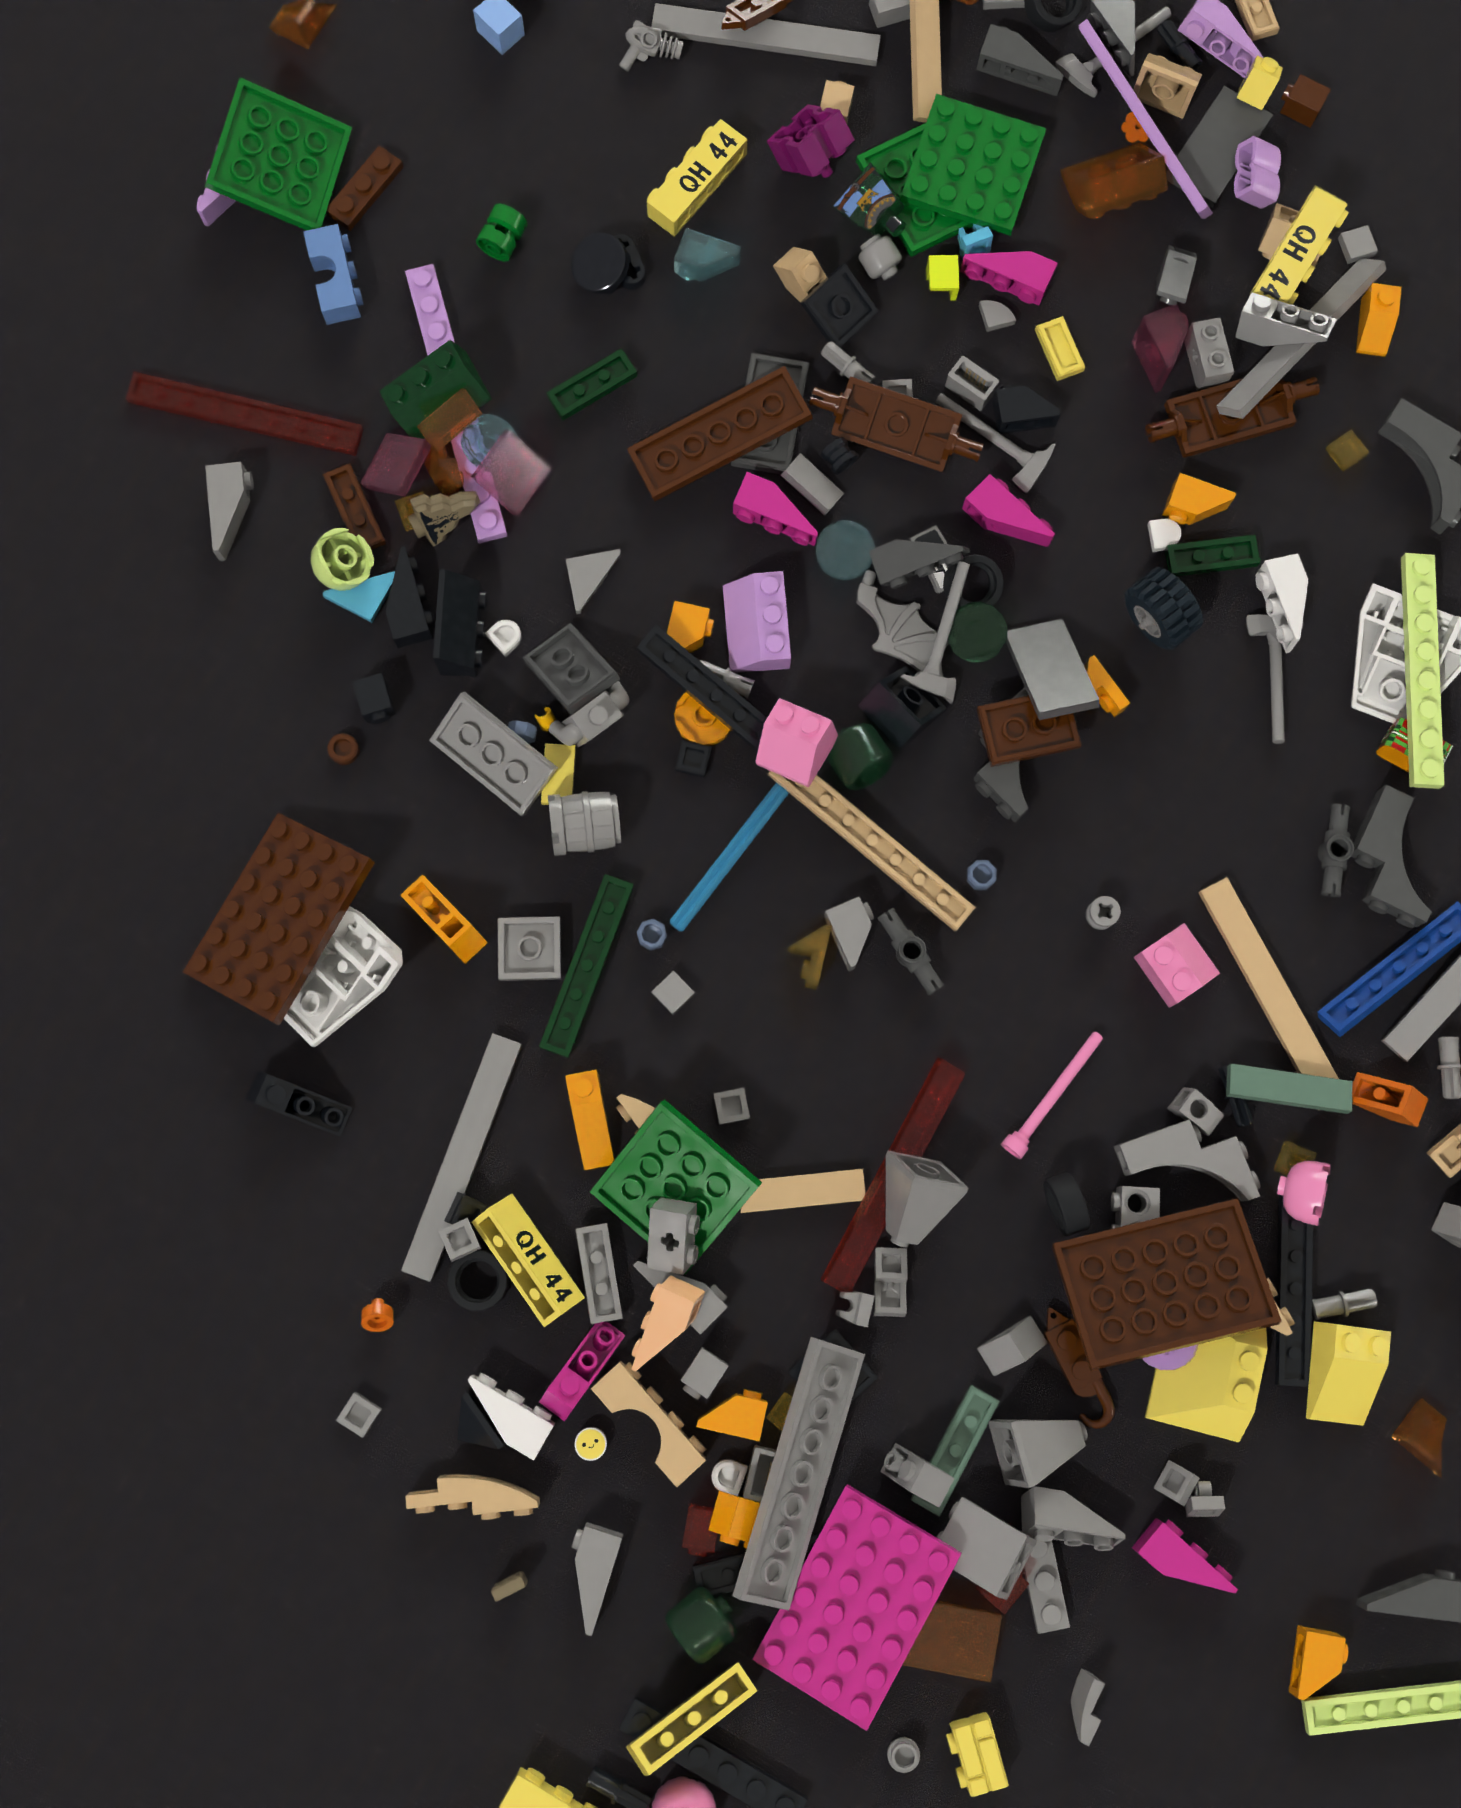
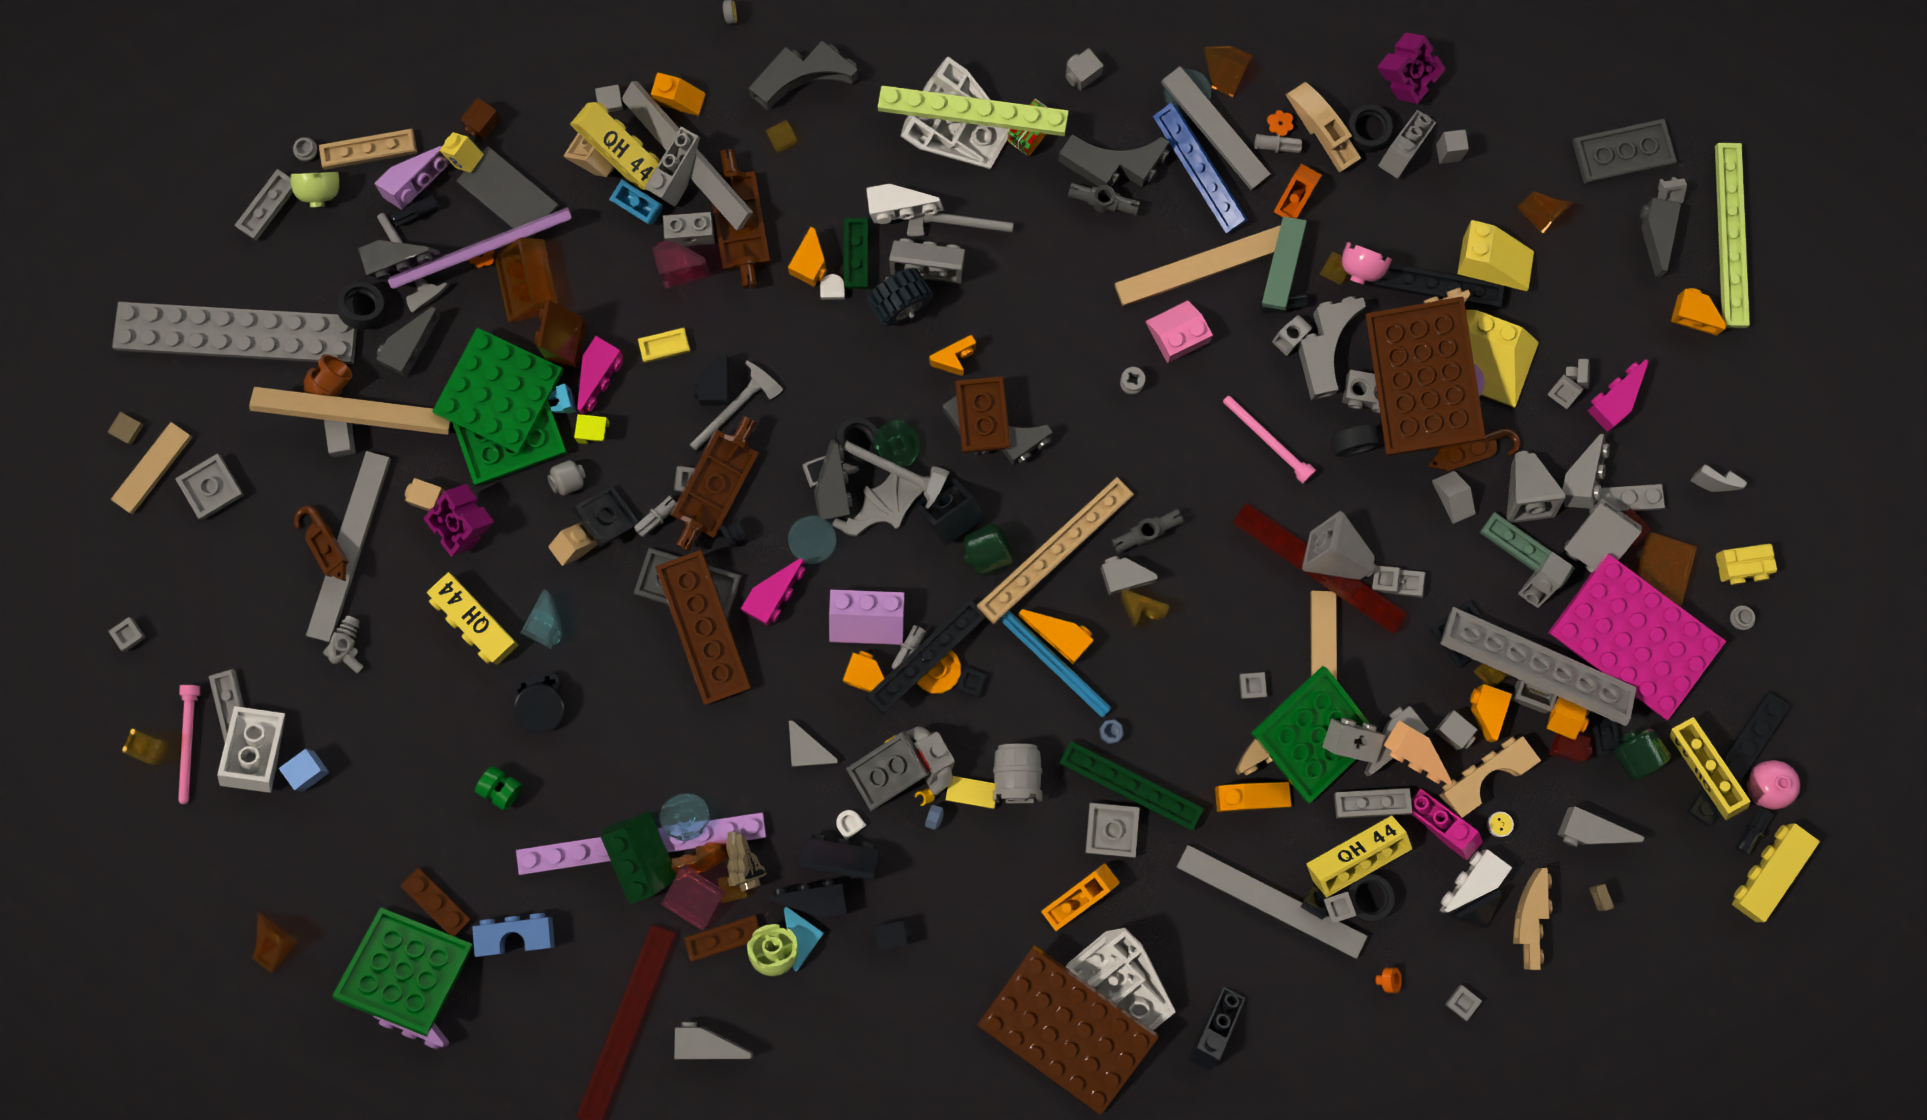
camera: 80 degrees left, 0 degrees up
(343, 749) = (929, 966): reddish brown tile -> none
(449, 419) = (666, 846): clear orange tile -> none
(493, 753) = (950, 842): light grey tile -> none
(511, 472) = (713, 802): clear pink tile -> none
(591, 384) = (643, 727): dark green plate -> none
(673, 992) = (1158, 720): light grey tile -> none
(729, 1476) = (1532, 721): white tile -> none
(762, 863) = (1064, 636): none -> light orange slope
(795, 742) = (976, 597): bright pink slope -> none
(812, 484) = (754, 557): light grey slope -> none
(859, 1308) = (1417, 606): light grey tile -> none
(872, 204) = (522, 476): torso -> none
(971, 383) = (686, 419): light grey piece -> none
(981, 875) = (1092, 468): sand blue tile -> none
(996, 315) = (628, 392): light grey tile -> none
(1003, 513) = (797, 412): dark pink slope -> none
(1051, 217) = (560, 335): none -> reddish brown slope
(1051, 669) = (938, 390): tile -> none
(1166, 85) = (450, 225): tan slope -> none
(1175, 275) = (623, 244): dark grey slope -> none
(1217, 641) = (931, 260): none -> light grey slope
(1231, 291) = (636, 202): none -> dark azure brick
(1257, 172) = (539, 166): lavender brick -> none
(1343, 1303) = (1445, 250): light grey axle -> none

